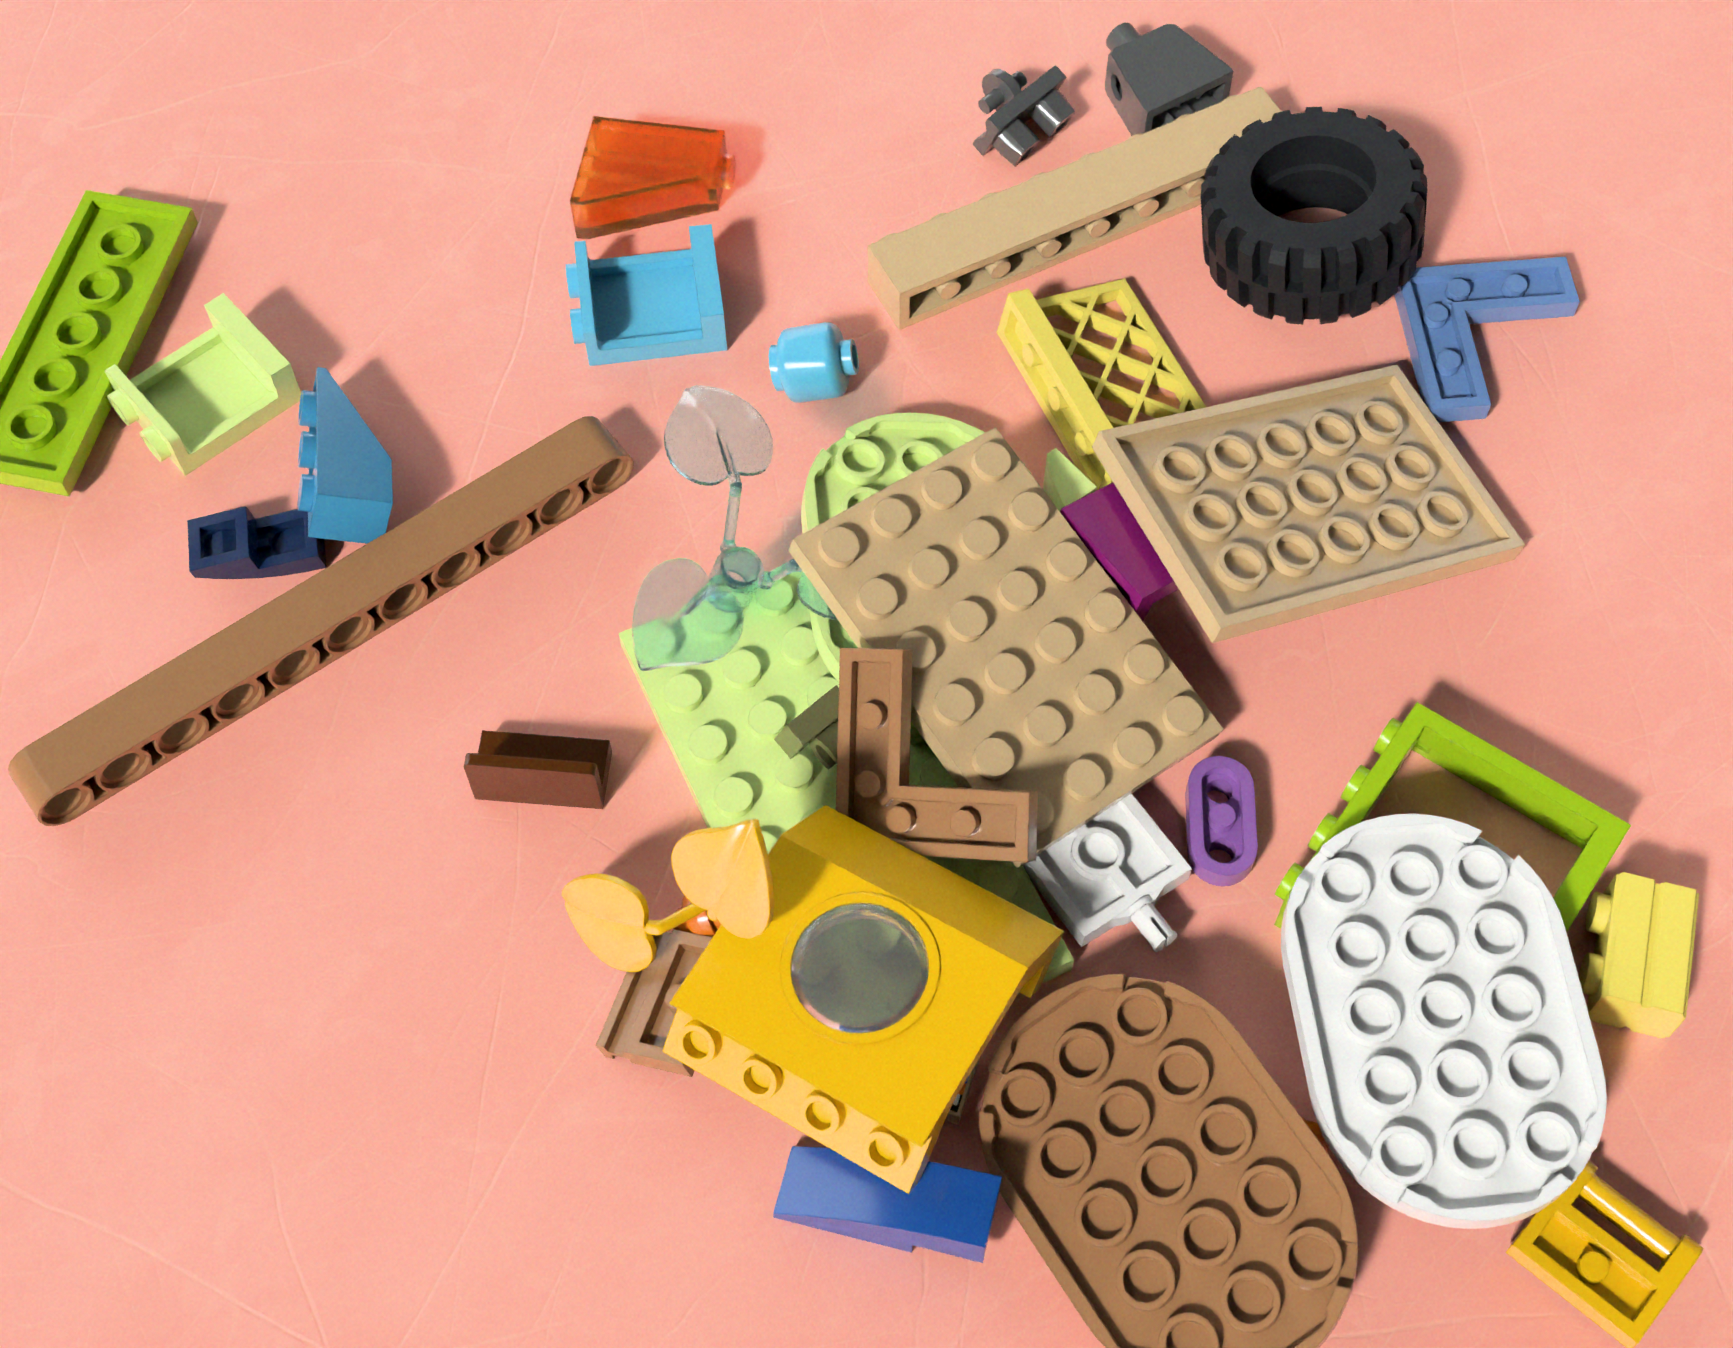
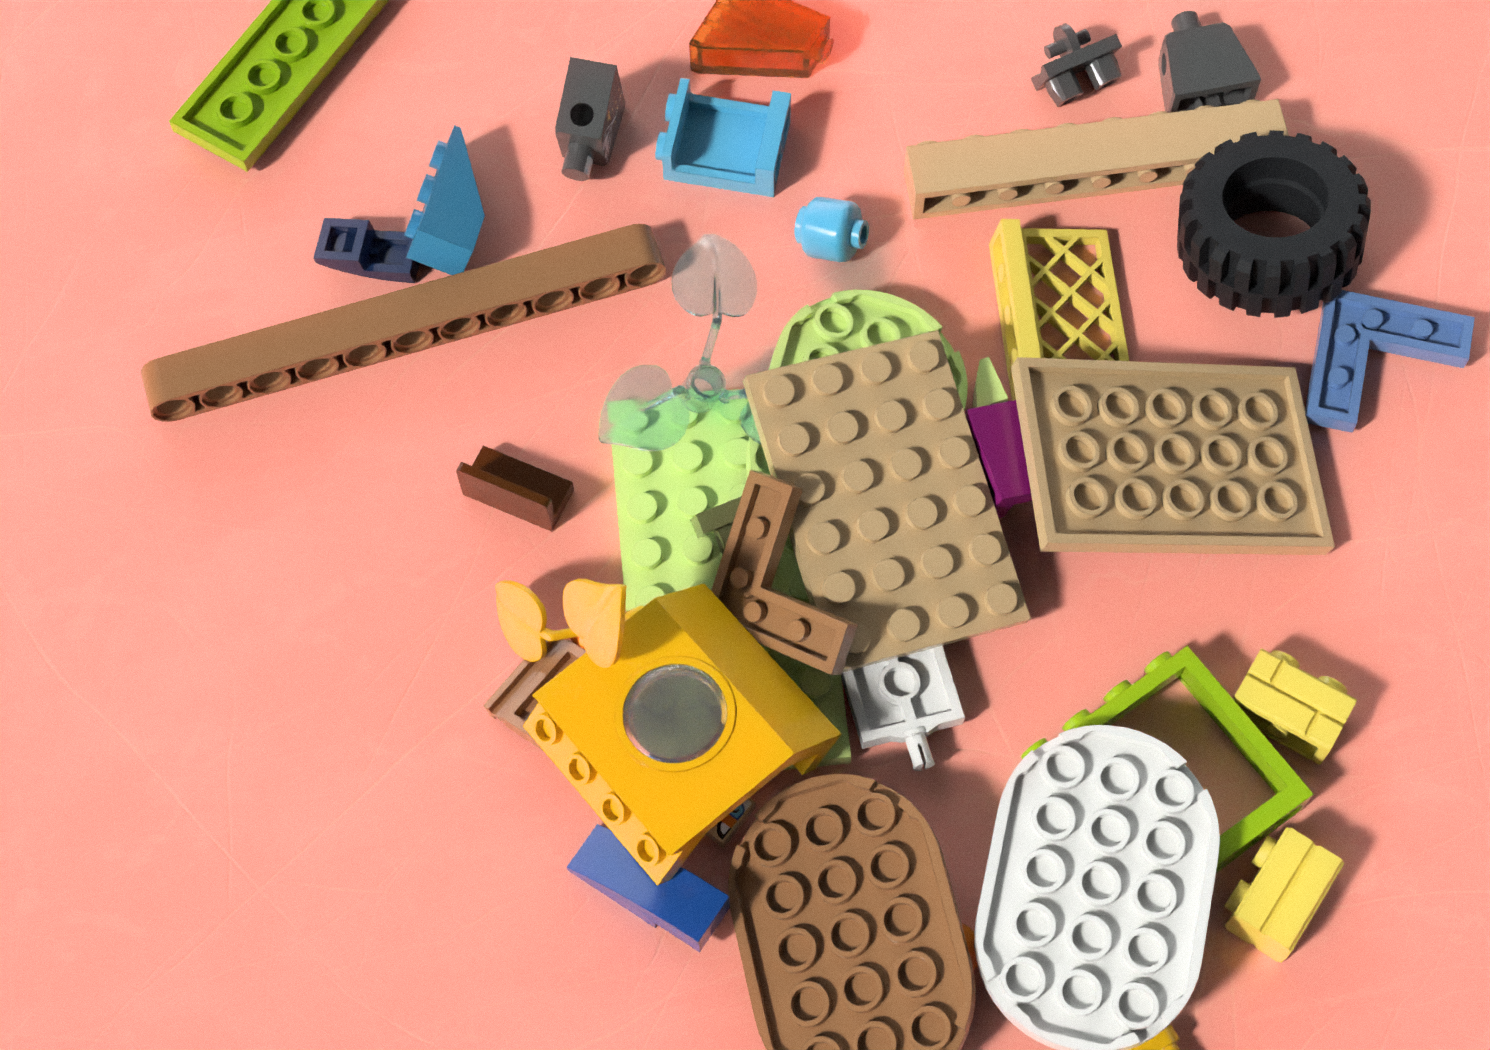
camera: 20 degrees right, 5 degrees up
(207, 390) = (370, 118): yellowish green panel -> none
(478, 313) = (588, 116): none -> dark grey torso
(1223, 825) = (1003, 690): medium lavender plate -> none
(1562, 734) = (1294, 705): none -> light yellow brick

